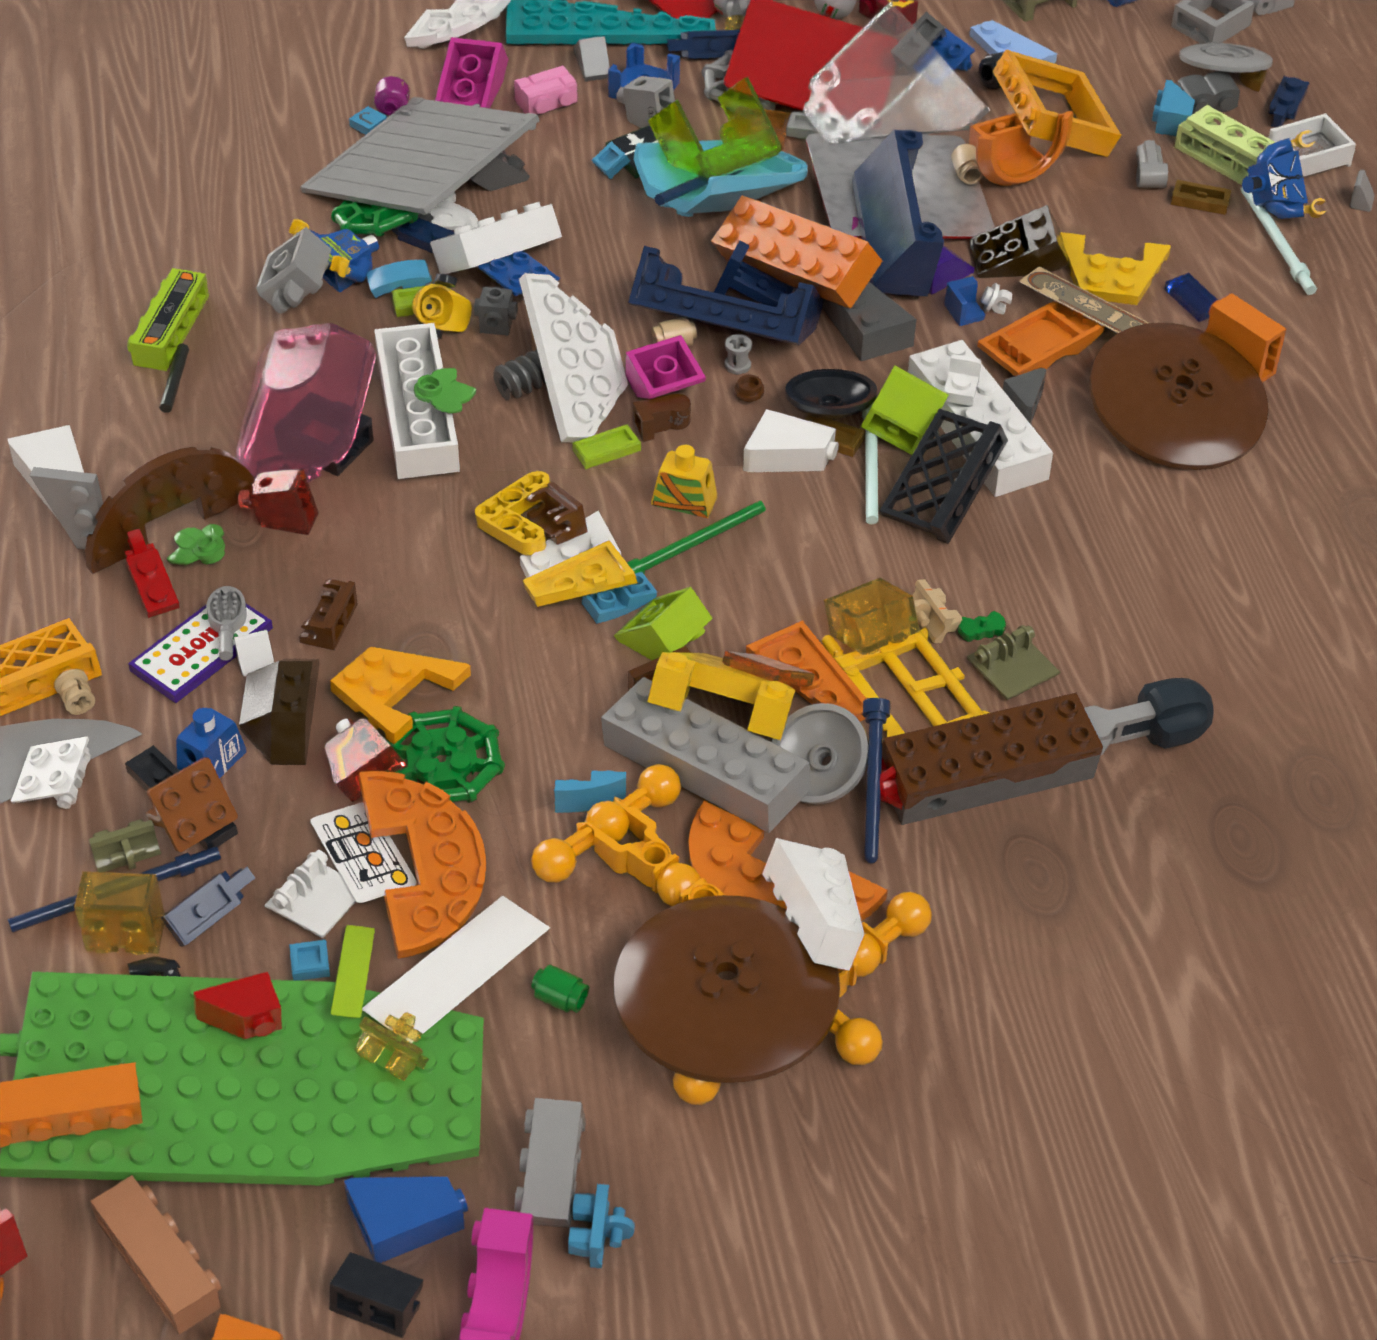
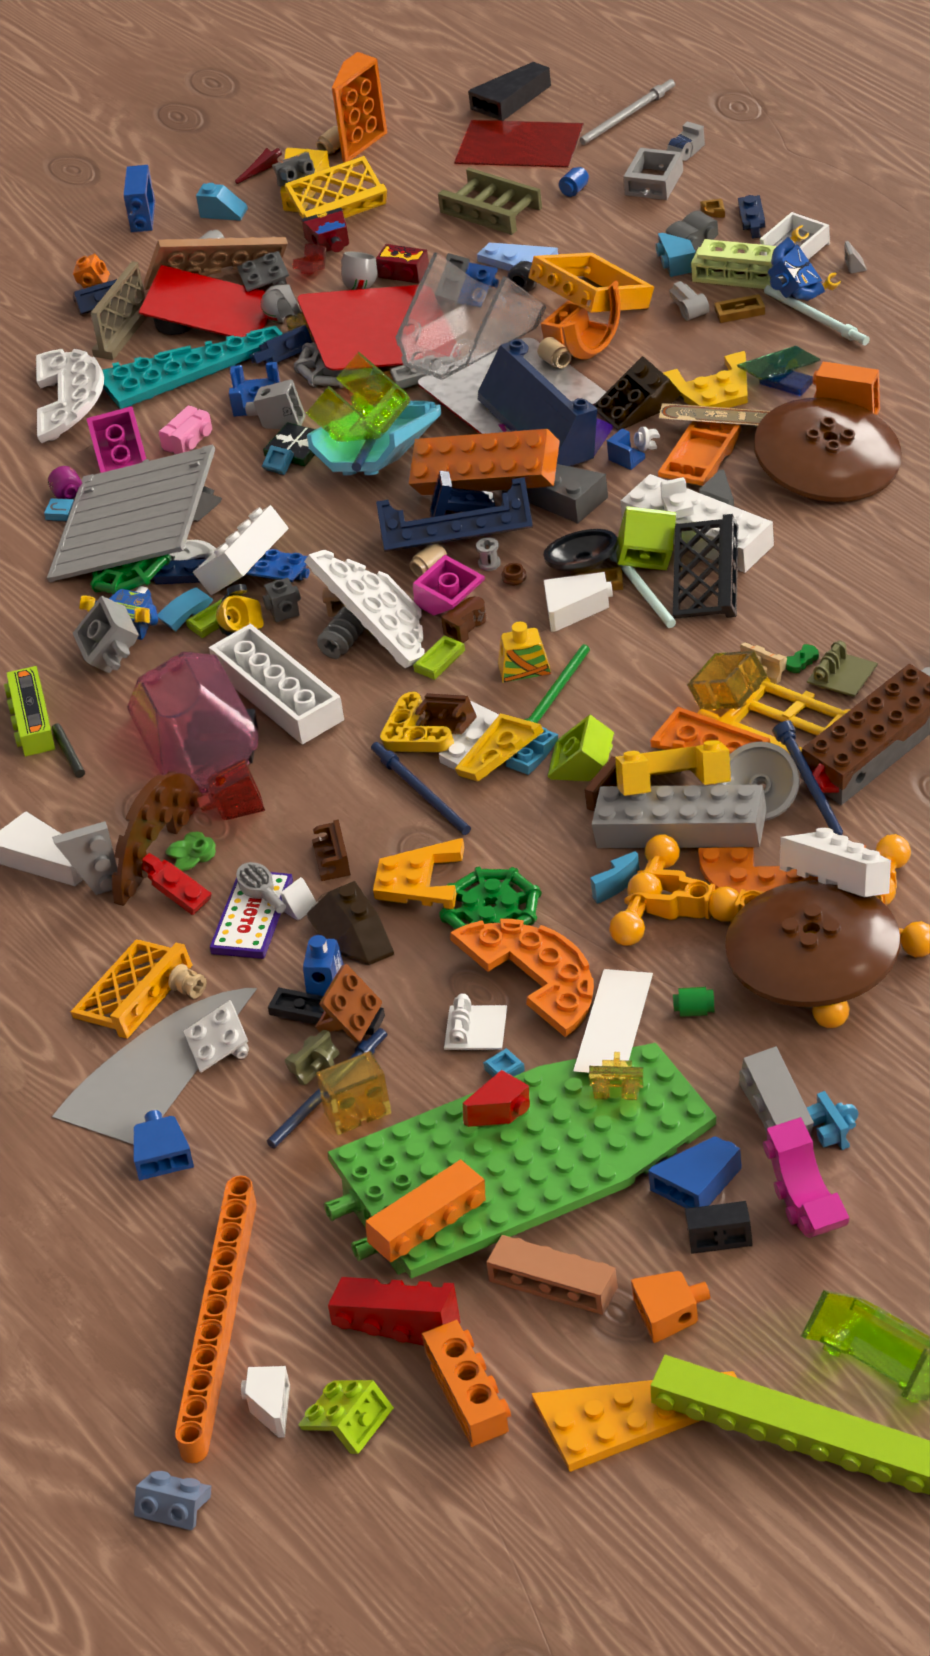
camera: 20 degrees left, 5 degrees down
(154, 966) = (399, 1116): black arm -> none
(206, 905) = (405, 1065): hinge -> none
(353, 971) = (545, 1054): lime sticker -> none
(358, 750) = (434, 923): clear red torso -> none
(363, 862) = (489, 989): sticker -> none
(443, 390) = (301, 665): bright green plate -> none
(469, 541) = (391, 762): none -> dark blue bar
(592, 58) = (200, 392): slope -> none
(768, 668) = (682, 742): clear orange tile -> none
(1198, 274) = (778, 362): none -> clear green piece
(1226, 57) = (687, 200): light grey piece -> none

